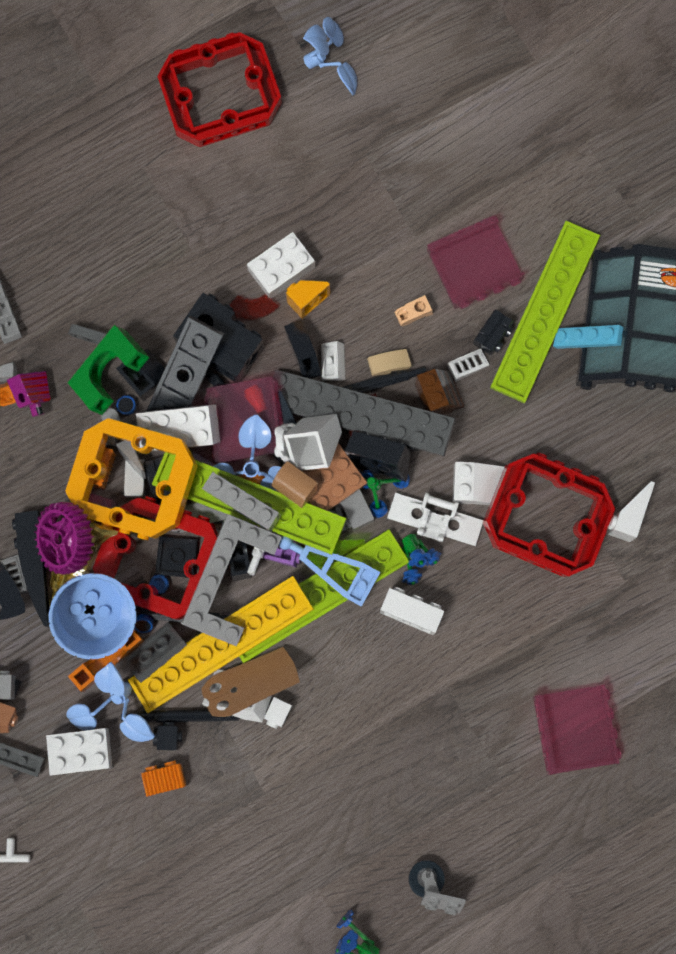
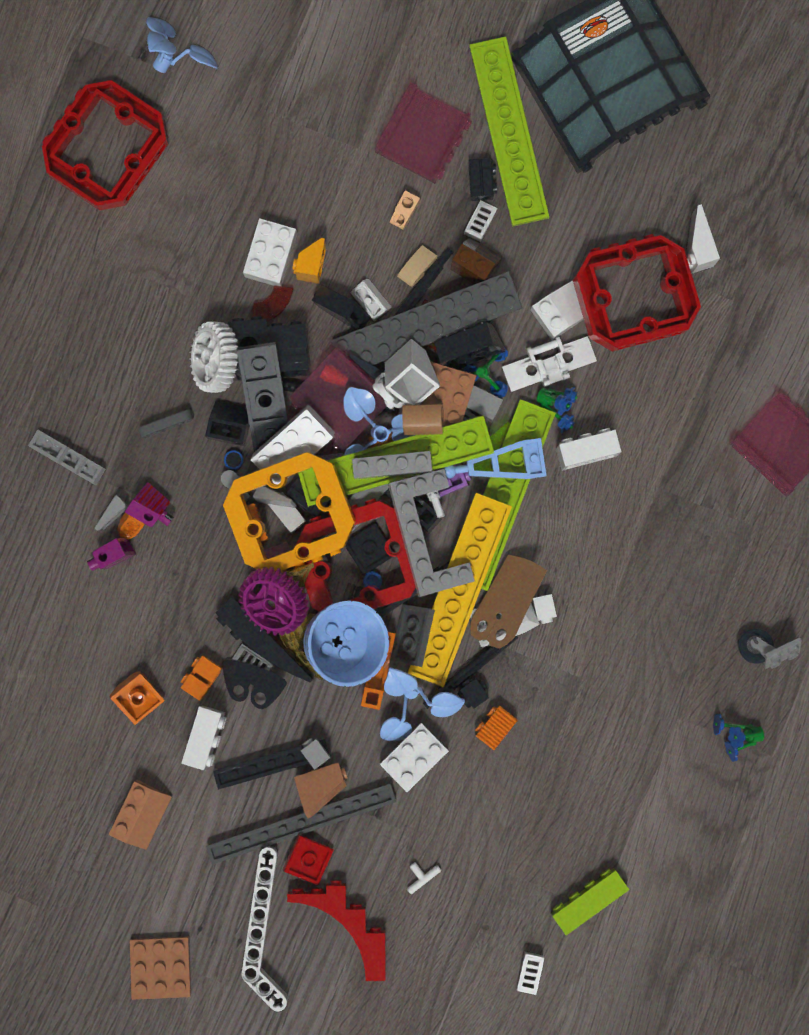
camera: 40 degrees left, 5 degrees up
(87, 379) = (187, 462): green arch -> none
(143, 623) = (388, 619): tile -> none
(171, 311) = (214, 357): none -> white gear
(588, 337) = (561, 126): medium azure plate -> none

